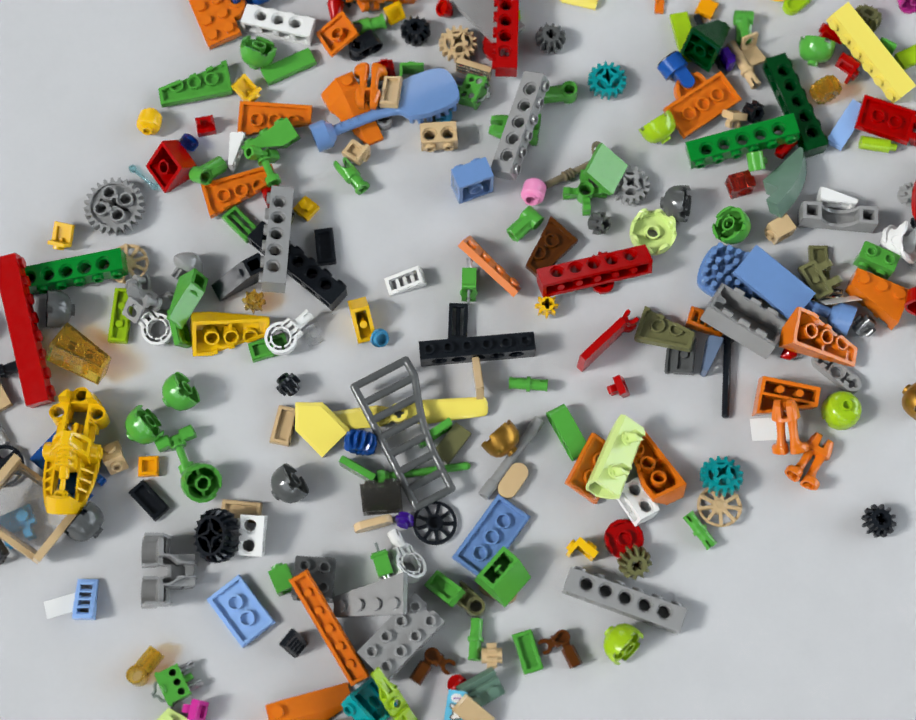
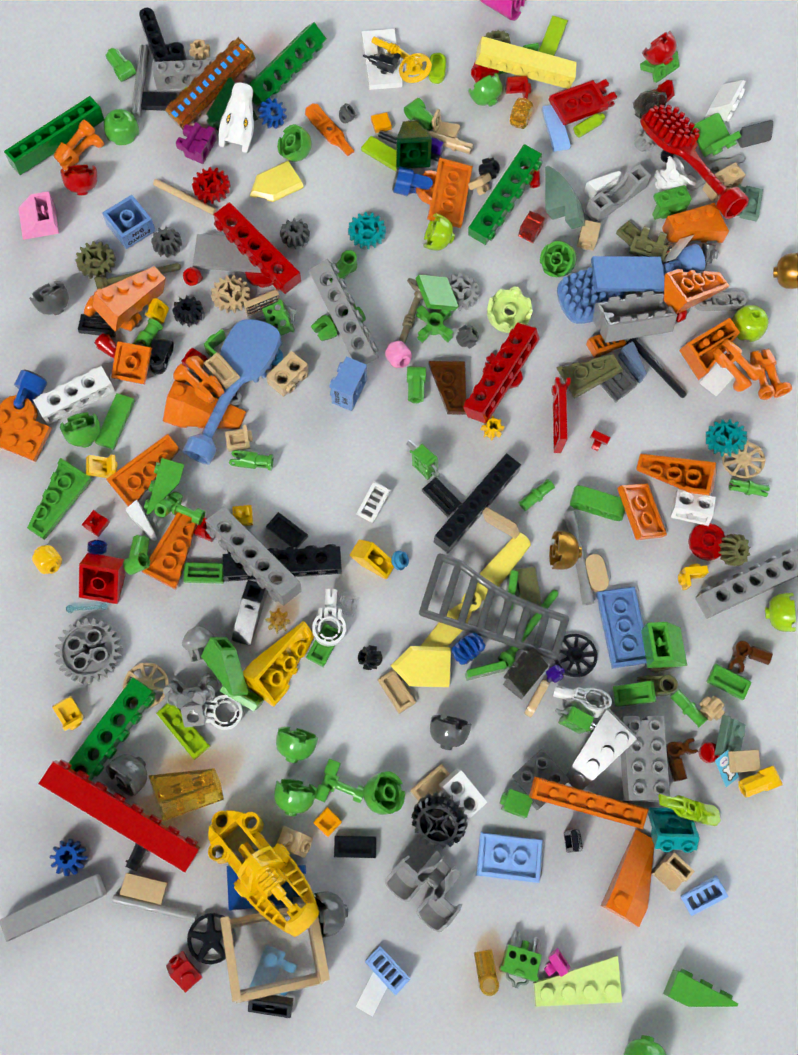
camera: 50 degrees left, 0 degrees up
(487, 263) = (420, 434): orange wing -> none
(615, 459) = (654, 491): yellowish green piece -> none
(677, 202) = (504, 275): dark grey cylinder -> none
(756, 161) = (530, 200): bright green piece -> none
(786, 99) = (506, 138): dark green brick -> none

